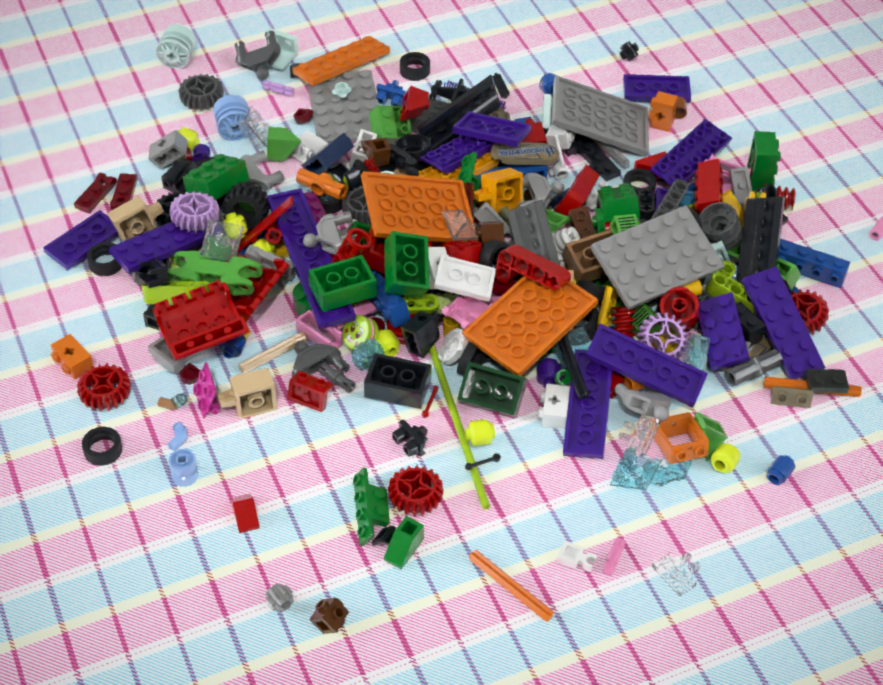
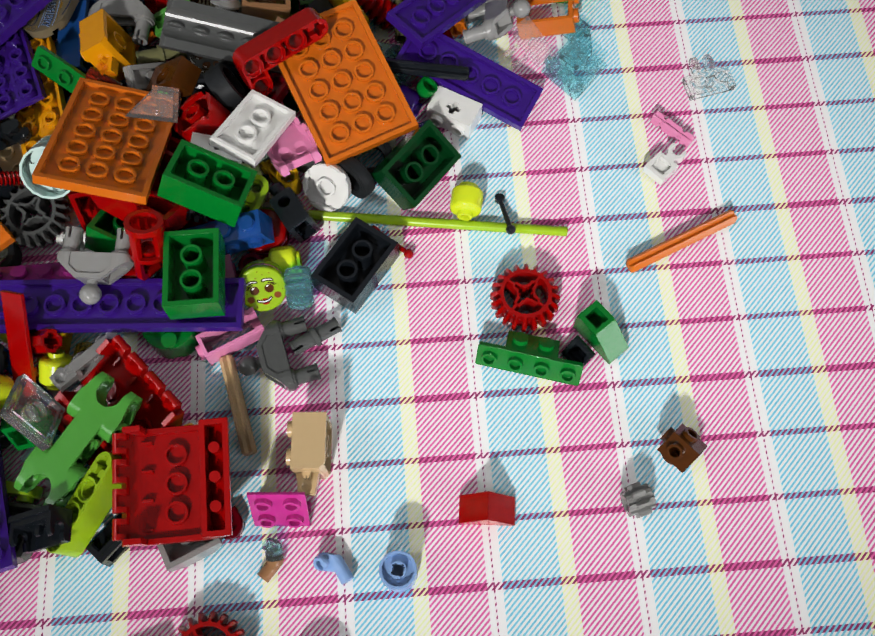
camera: 70 degrees left, 20 degrees up
(309, 391) = (328, 374): red bracket -> none
(414, 437) = (444, 275): black hips -> none

